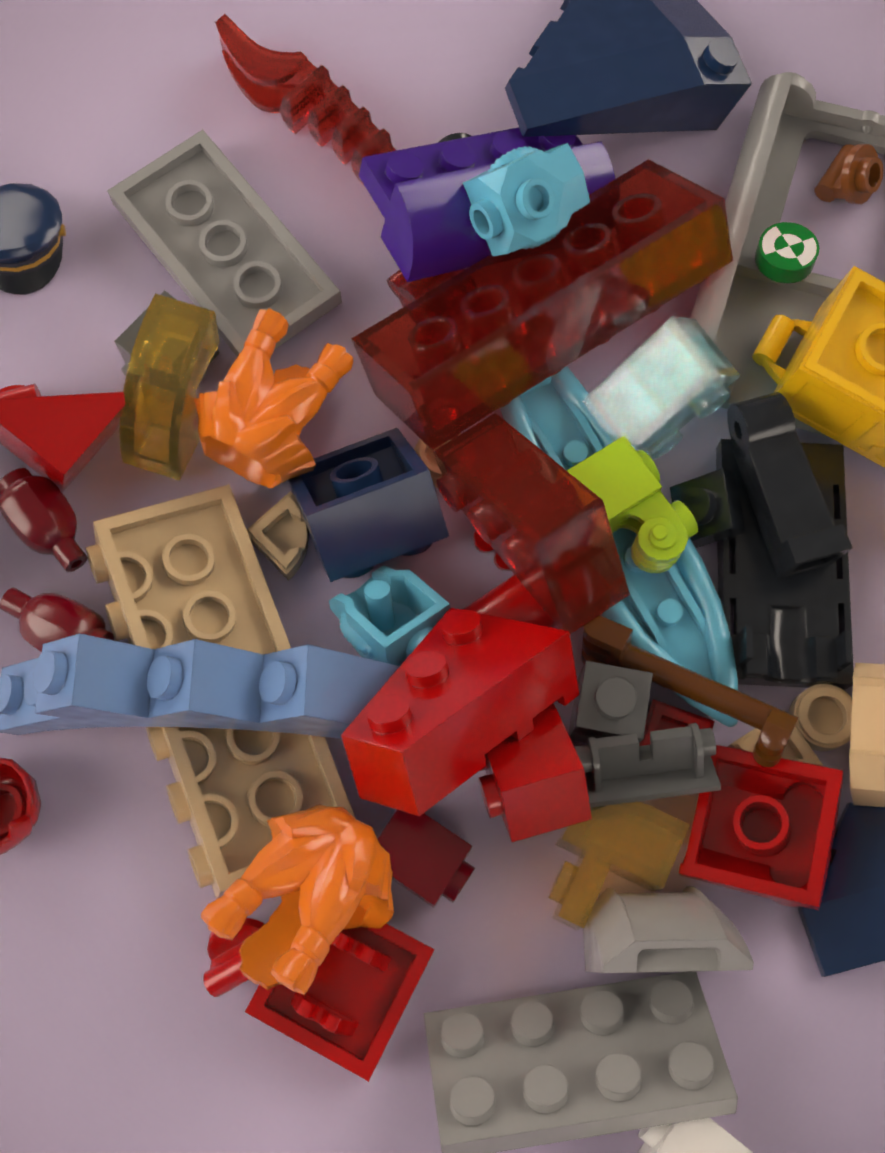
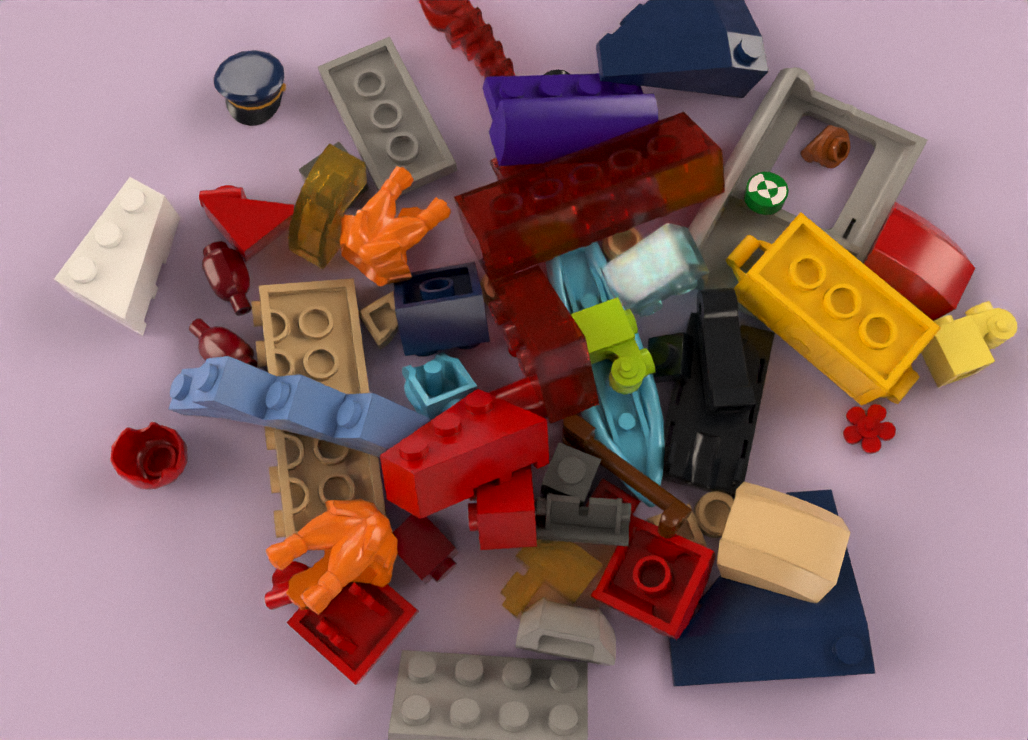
camera: 15 degrees right, 0 degrees up
(526, 197) = (589, 124): medium azure hand -> none
(600, 363) = (619, 243): none -> tan plate

